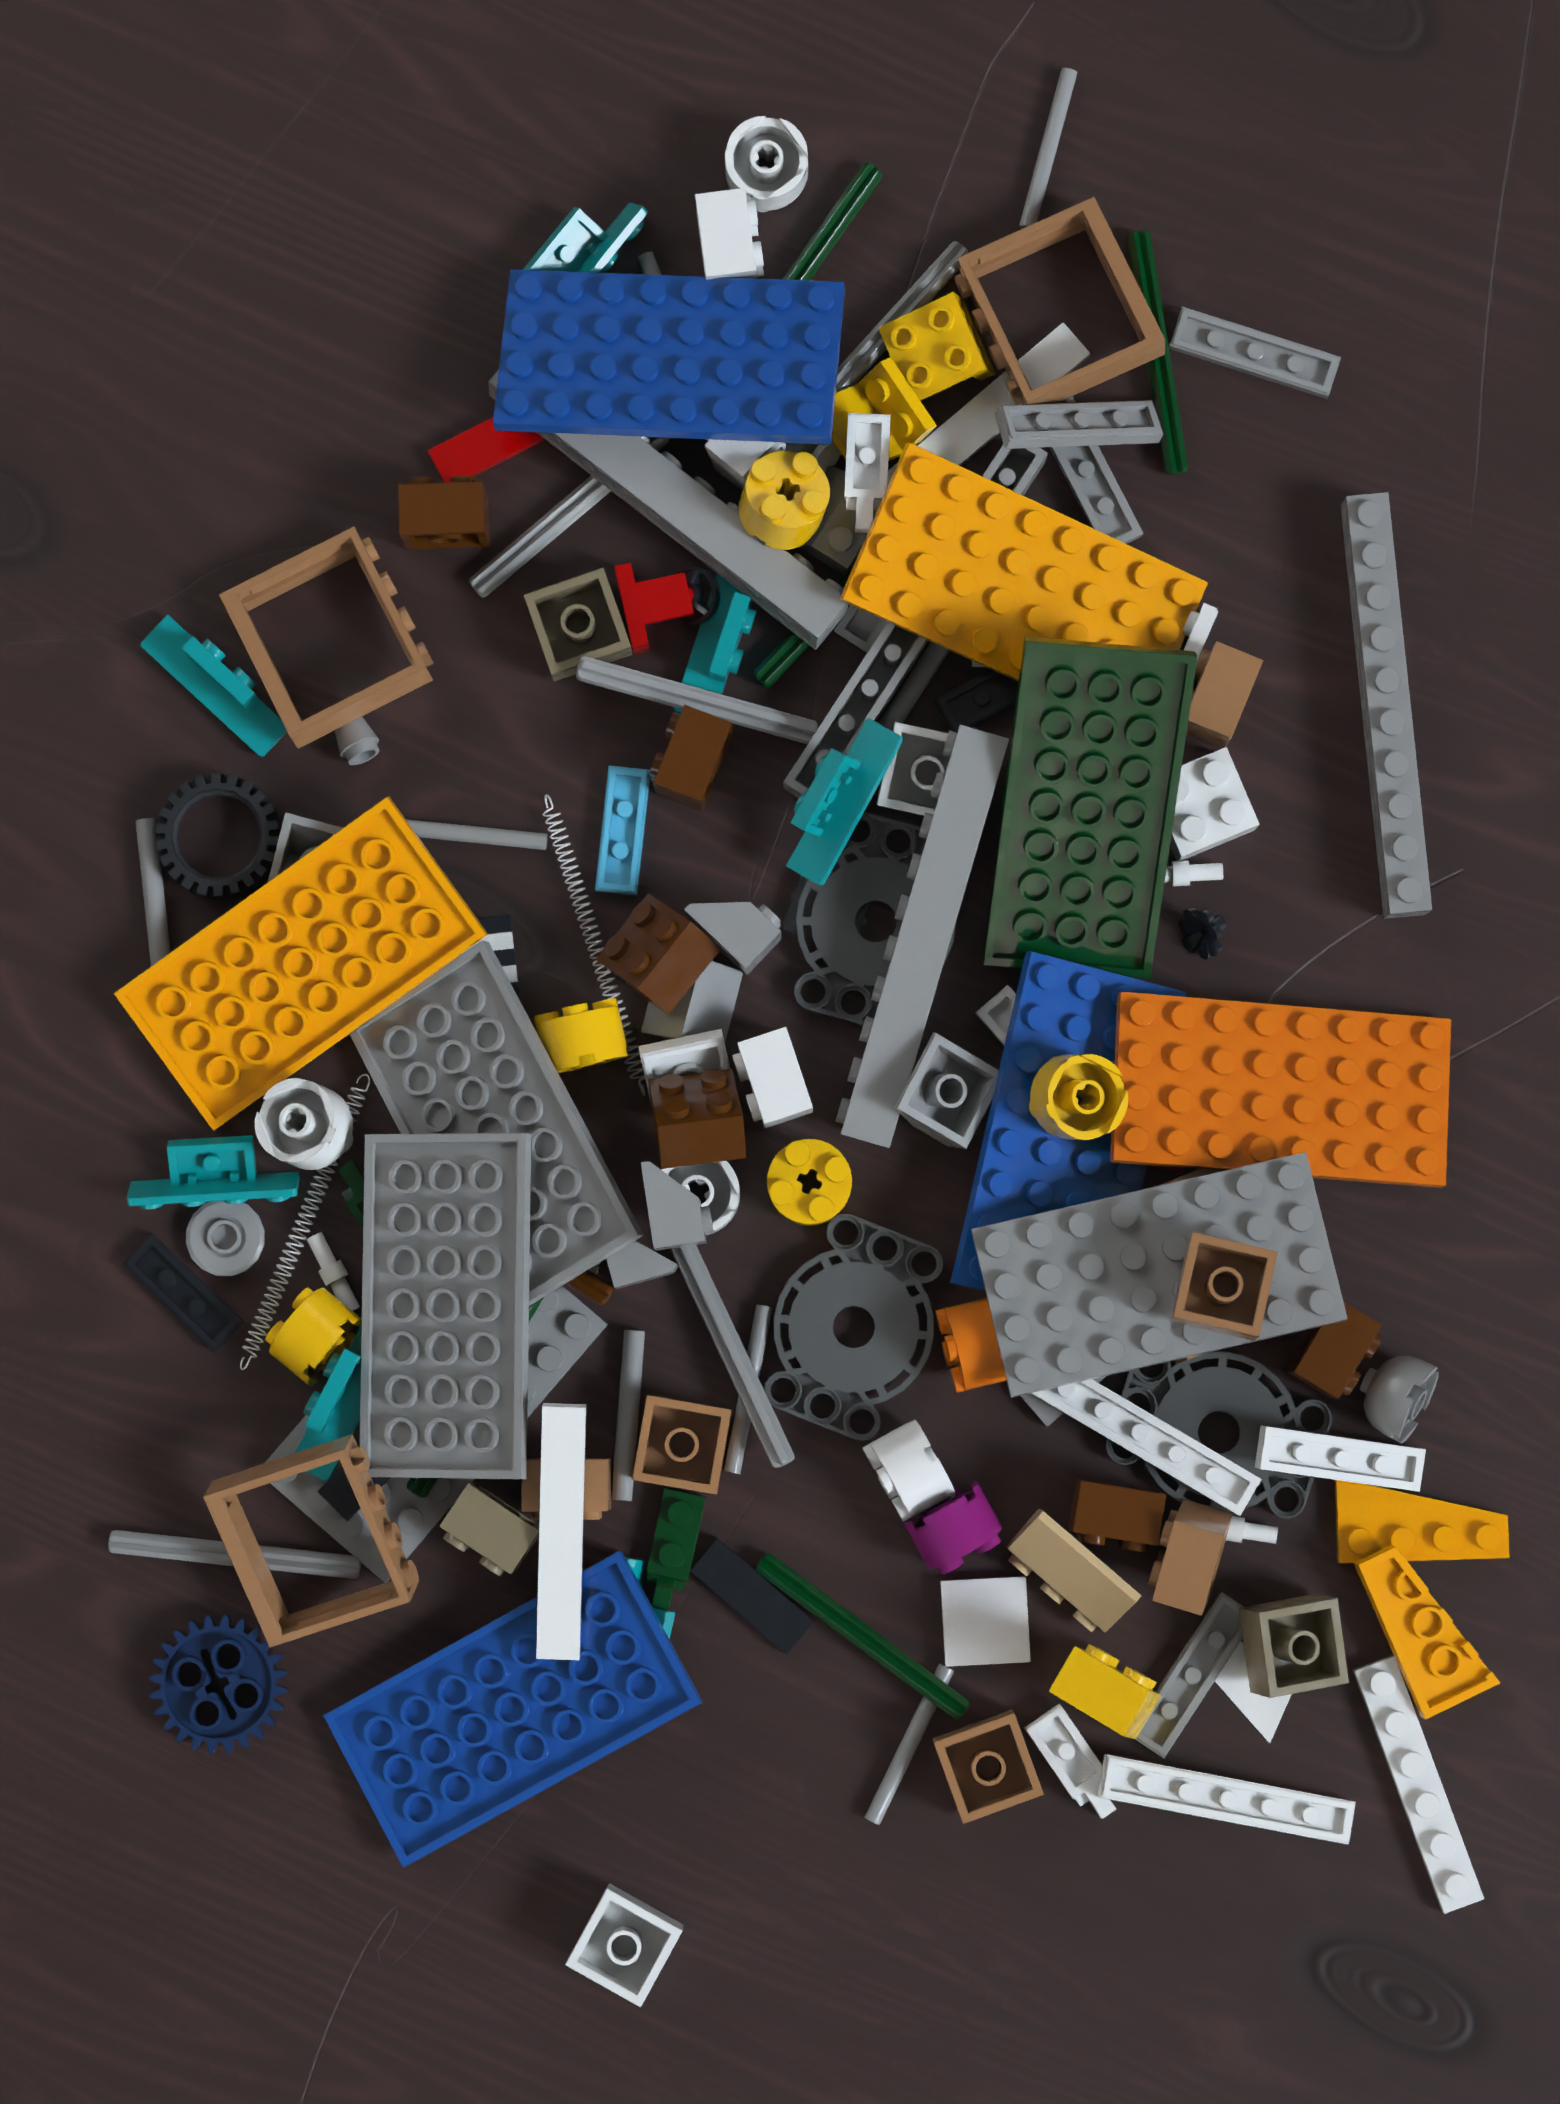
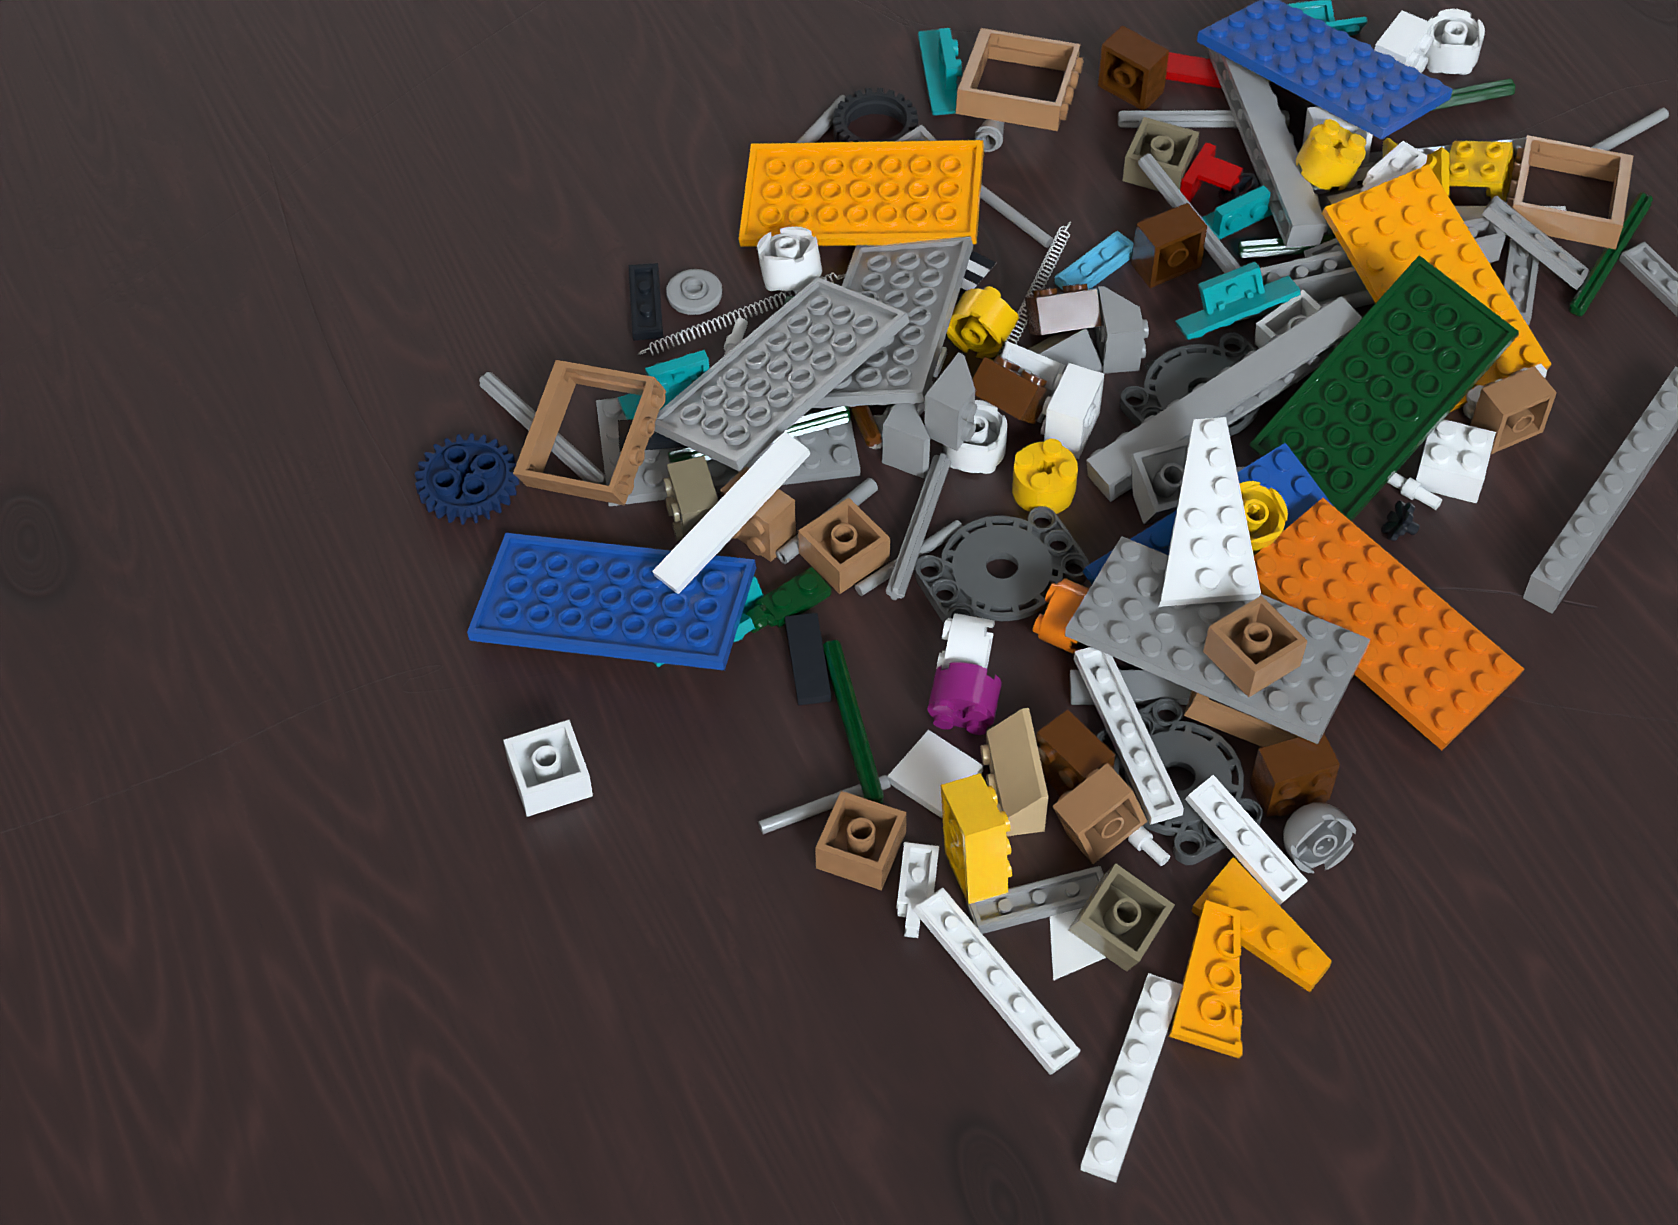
camera: 40 degrees right, 30 degrees down
(212, 1171) = (721, 254): teal bracket -> none
(312, 1333) = (691, 337): yellow brick -> none
(1072, 1174) = (1210, 534): none -> white wing

